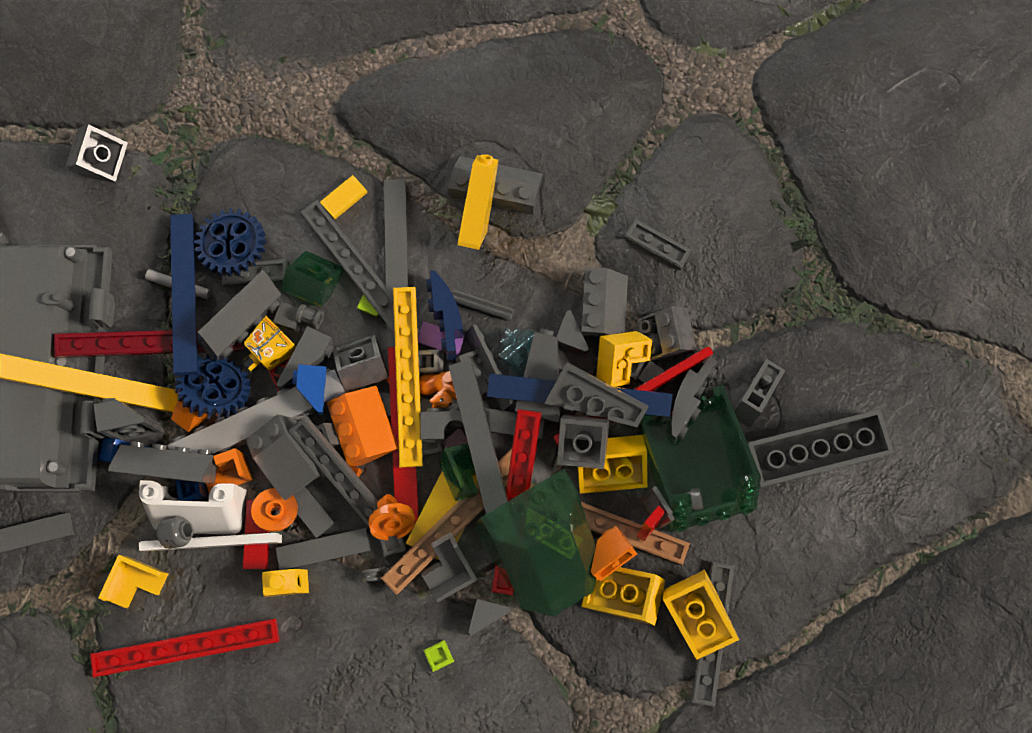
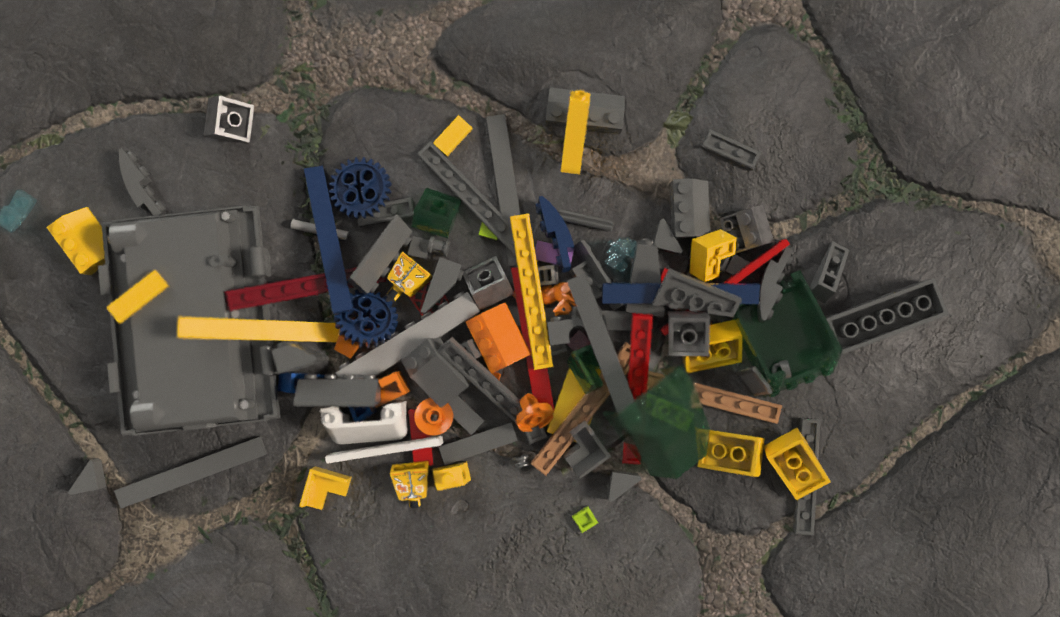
camera: 10 degrees left, 10 degrees up
(174, 532) = (355, 447): dark grey head -> none
(184, 648) = (375, 536): red tile -> none
(236, 585) = (410, 481): none -> yellow torso
(311, 385) = (452, 310): blue slope -> none
(611, 553) = (719, 422): orange slope -> none
(651, 523) = (751, 395): red tile -> none

